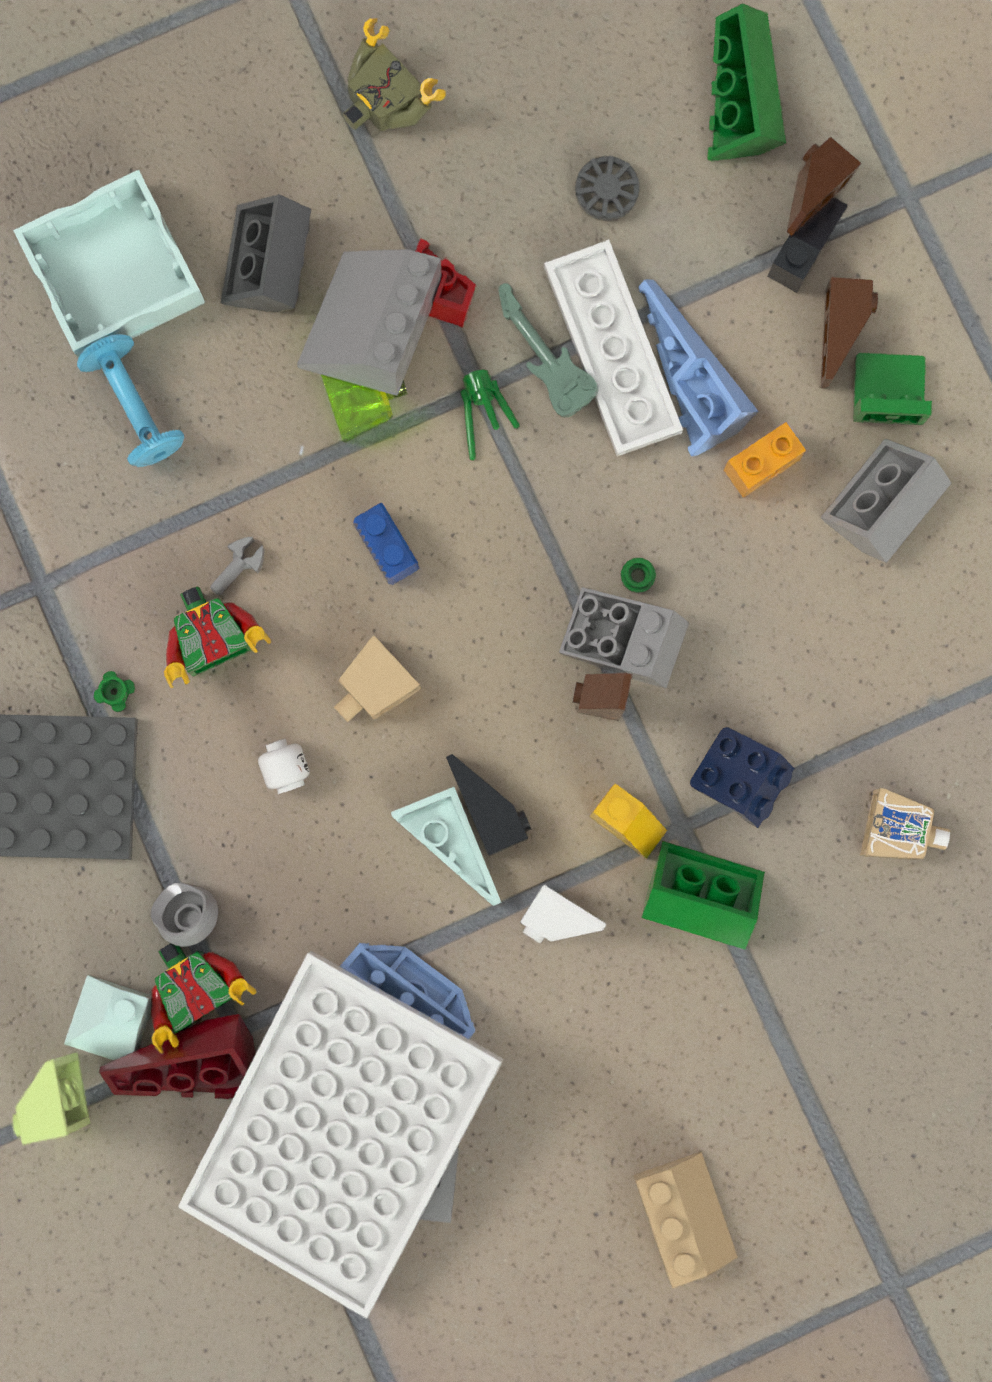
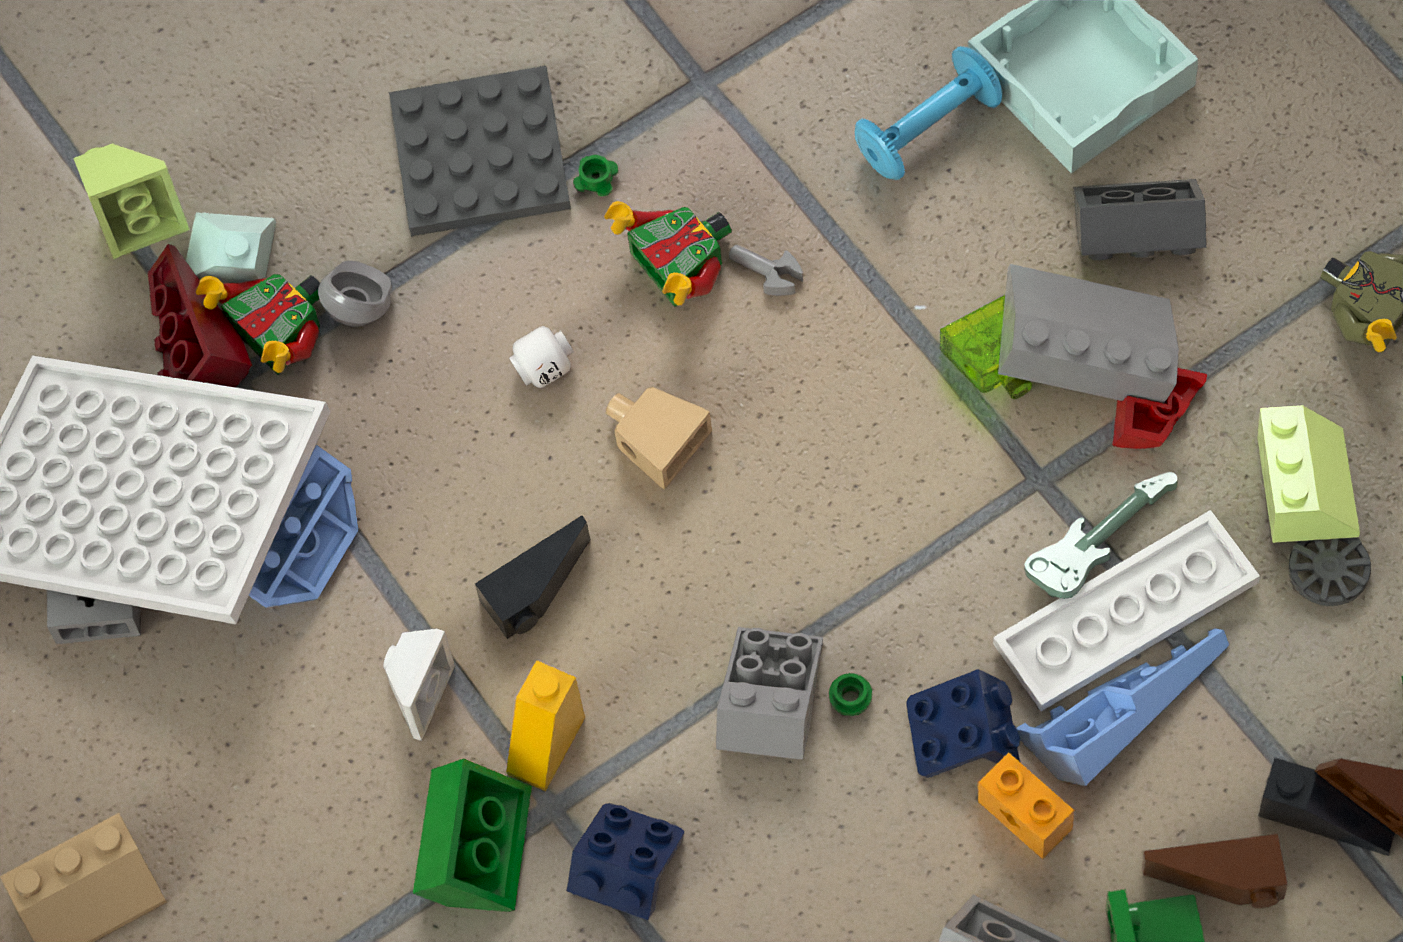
camera: 85 degrees right, 20 degrees down
(386, 544) = (823, 408): blue brick -> none
(445, 831) = (498, 538): light aqua wing -> none
(480, 390) = (1034, 473): green plant -> none
(532, 185) = (1305, 476): none -> yellowish green slope
(603, 695) = (688, 677): reddish brown slope -> none
(685, 494) = (962, 723): none -> dark blue bracket

